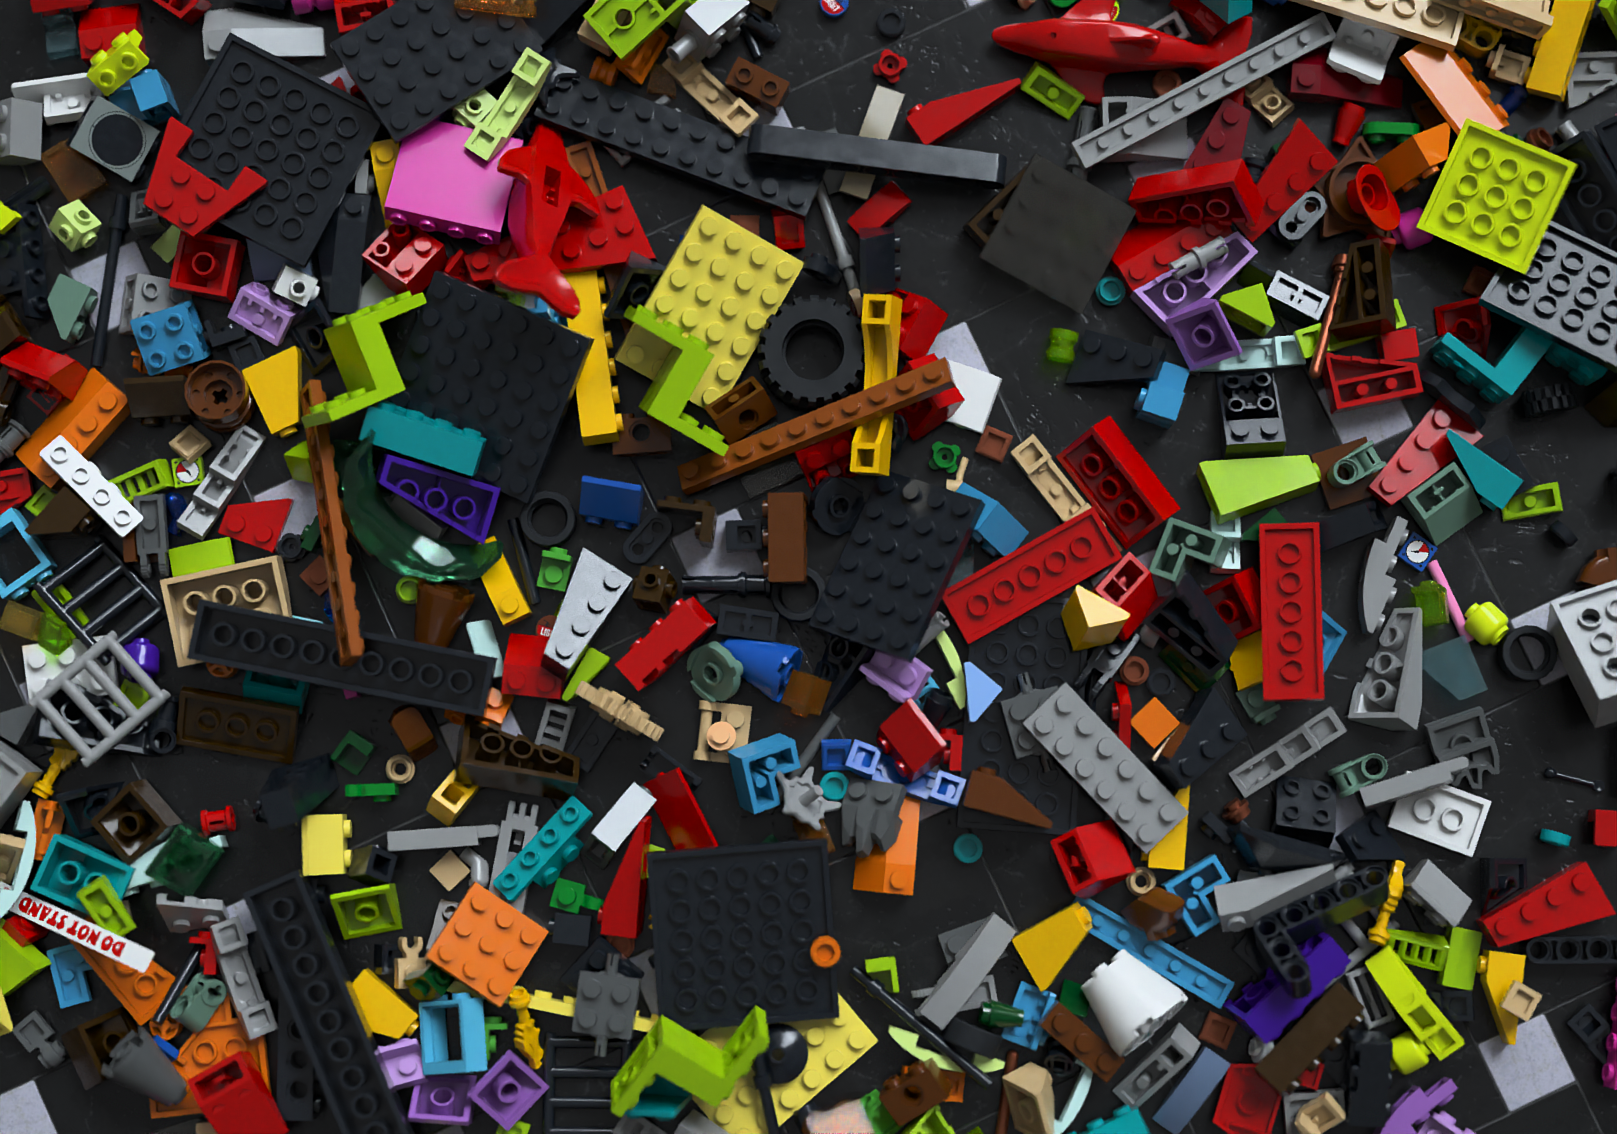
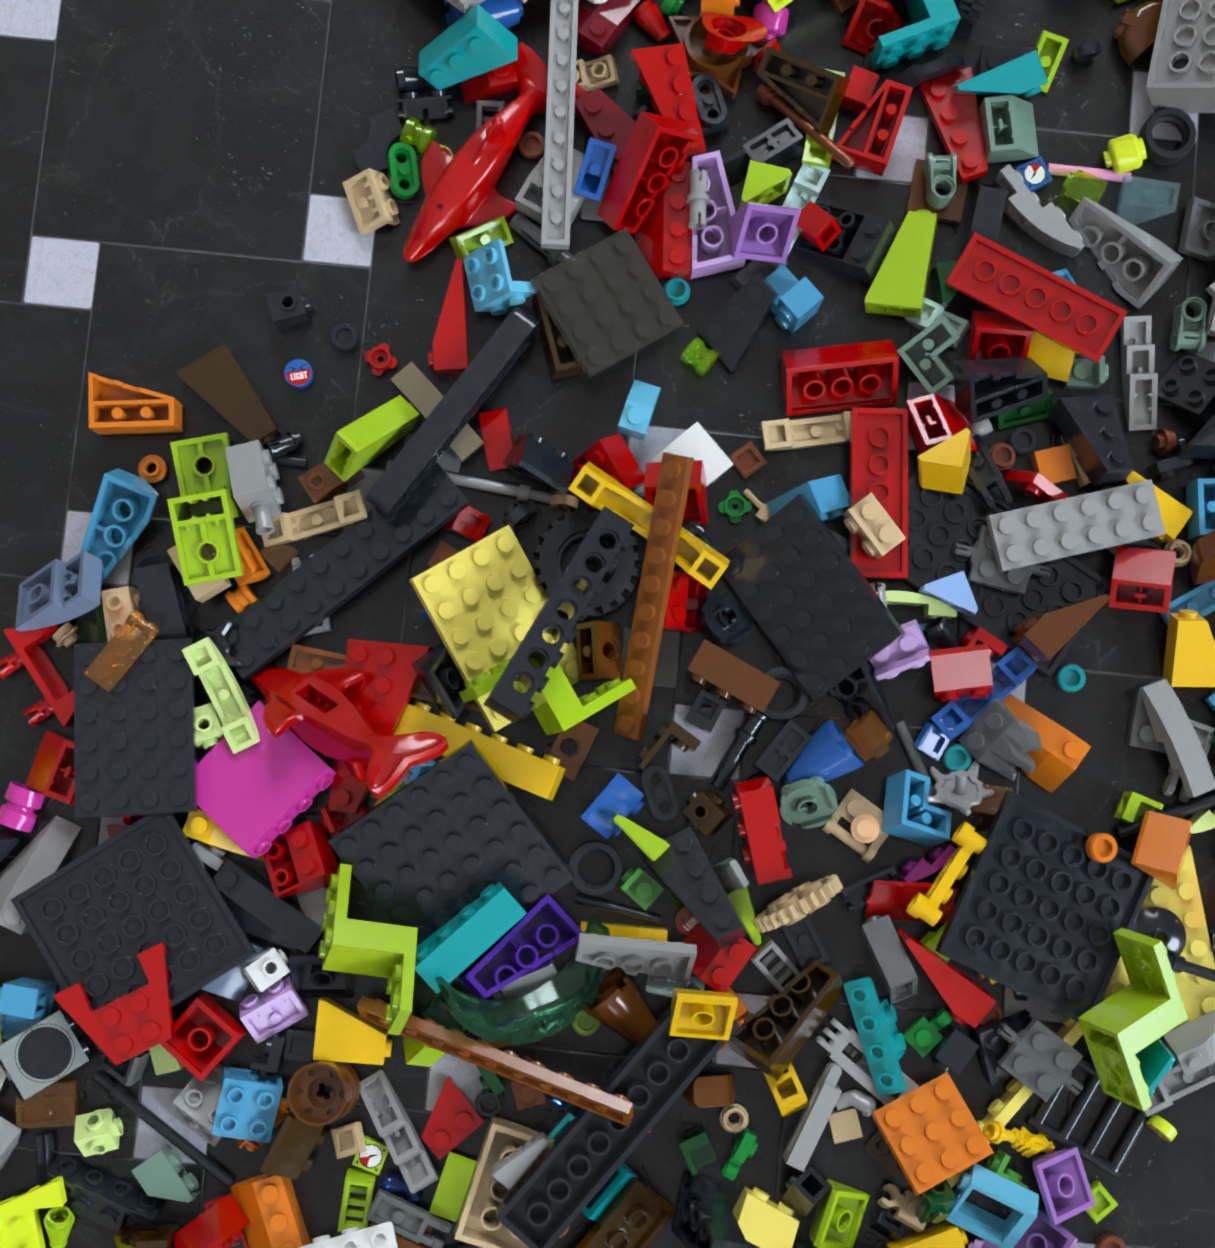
camera: 65 degrees left, 0 degrees up
(249, 592) = (515, 1164): none -> light grey slope
(472, 675) = (702, 1014): none -> yellow slope
(496, 606) = (651, 957): none -> light grey wing
(595, 545) = (645, 840): none -> lime slope
(611, 641) = (730, 875): none -> light grey slope
(678, 823) = (927, 906): none -> yellow plate
(711, 804) = (919, 868): none -> magenta slope
(811, 97) = (370, 436): none -> lime slope
(850, 348) = (503, 697): none -> black brick
(858, 1010) = (1162, 847): none -> orange slope
(981, 319) = (638, 410): none -> medium azure slope
(995, 585) = (873, 527): none -> tan bracket
(1015, 119) = (491, 280): none -> medium azure bracket
(1171, 151) = (594, 169): none -> blue slope
(1242, 379) = (817, 226): none -> red brick

